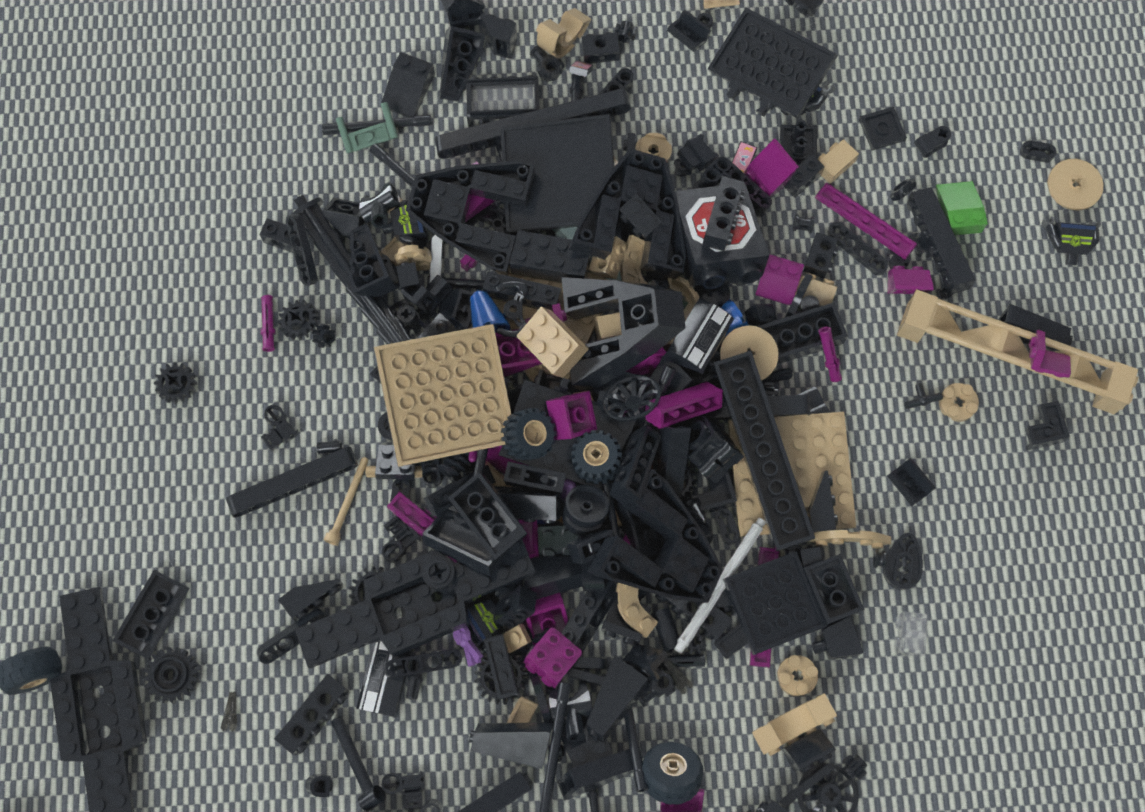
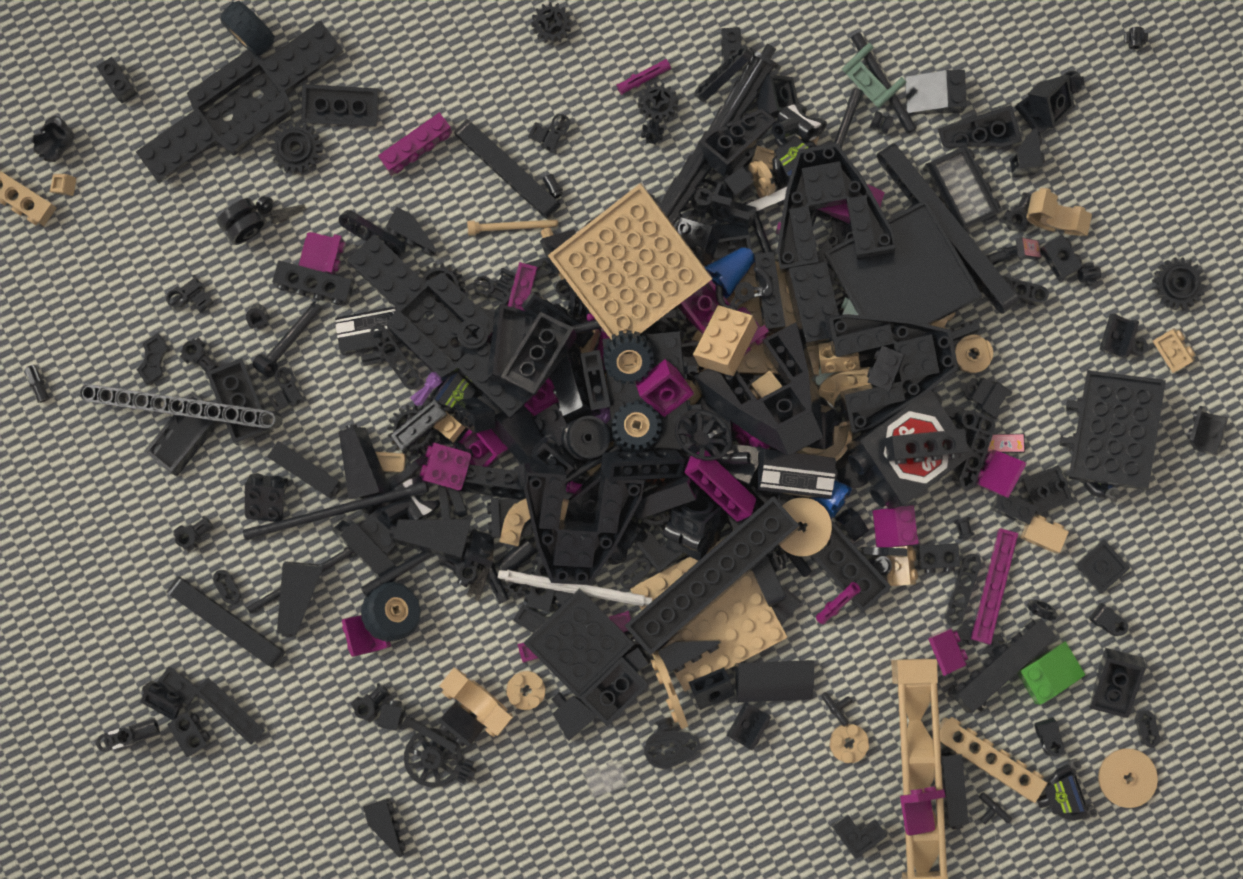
camera: 65 degrees right, 10 degrees up
(211, 730) = (264, 204): none -> black plate
(217, 759) = (241, 221): none -> black wheel
(226, 557) = (415, 144): none -> magenta brick
(286, 693) = (322, 252): none -> magenta bracket
(412, 140) = (877, 120): none -> black wheel
(864, 500) = (712, 688): none -> black brick
(877, 441) = (774, 681): none -> black slope
(989, 156) = (1117, 682): none -> black slope
(1017, 230) = (1049, 734): none -> black piece
(1055, 261) = (1030, 790): none -> tan brick
(1063, 303) = (995, 808): none -> black piece

